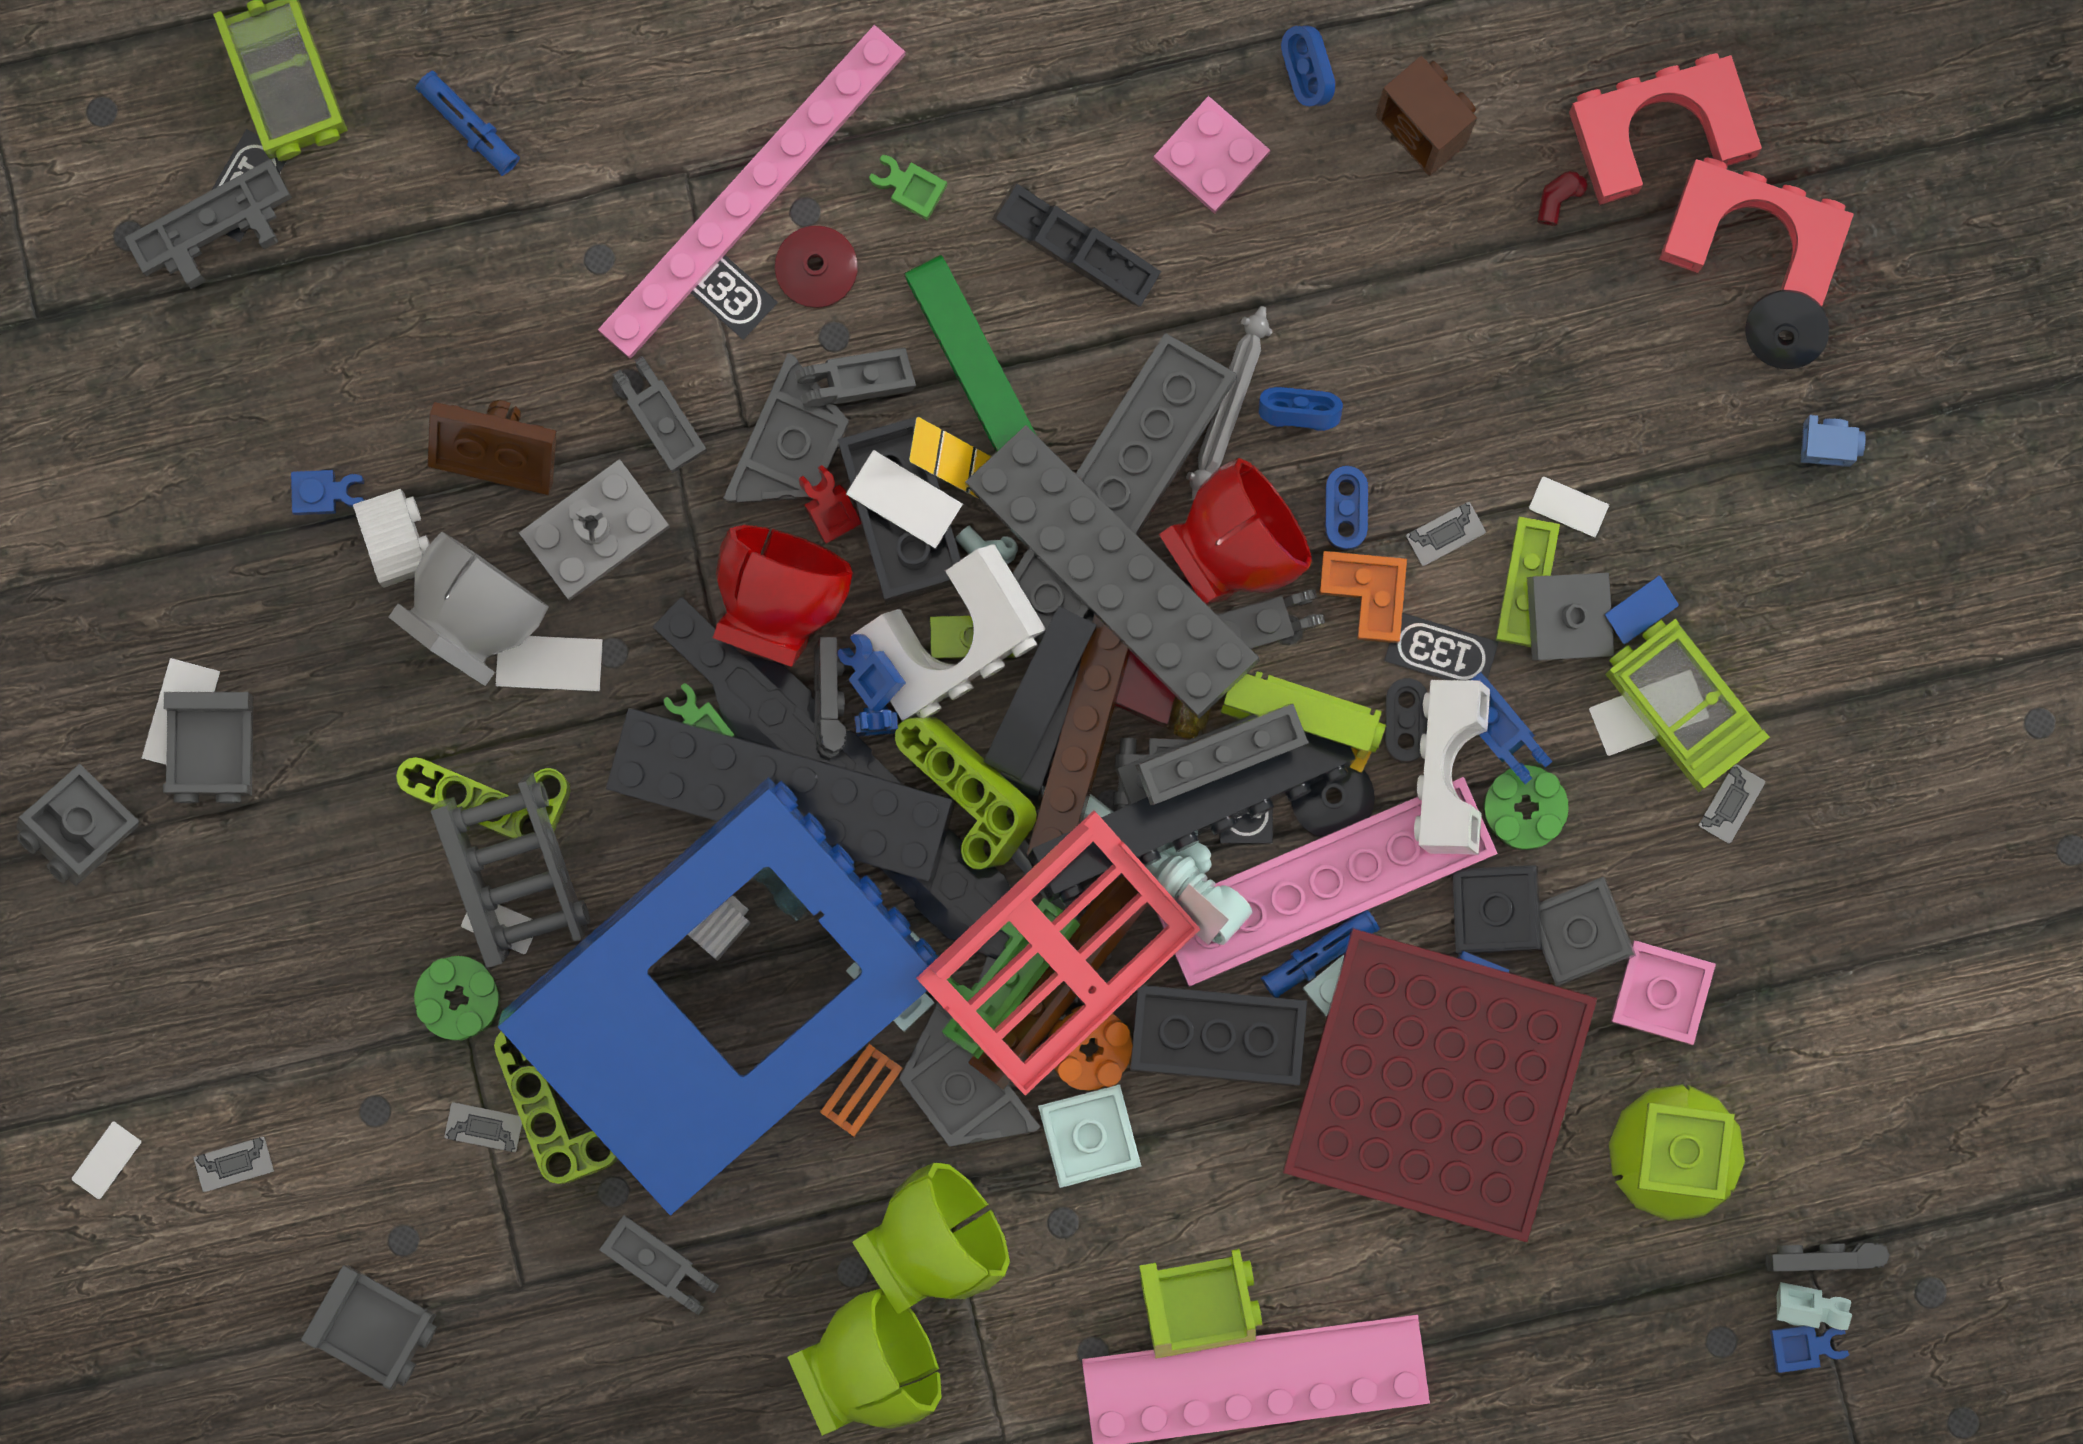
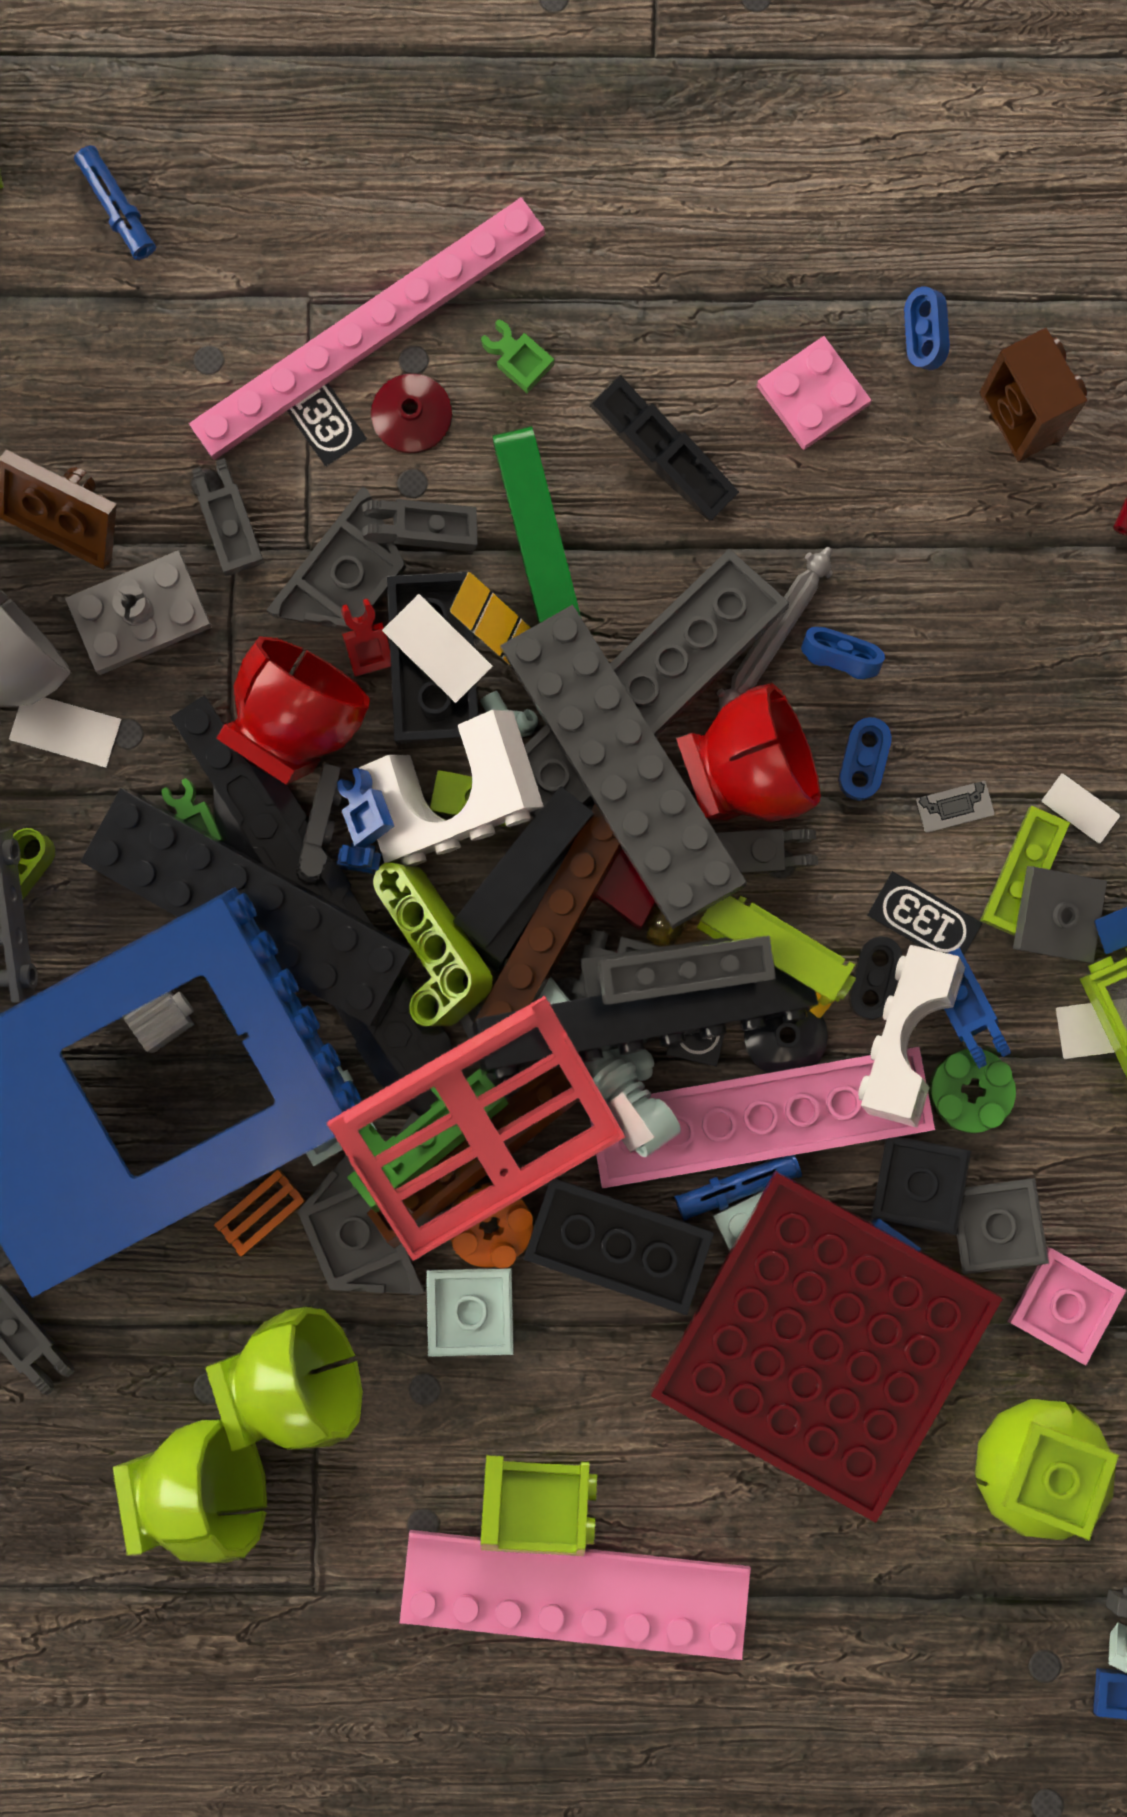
camera: 20 degrees right, 0 degrees up
(1379, 585) = (877, 837): orange plate -> none

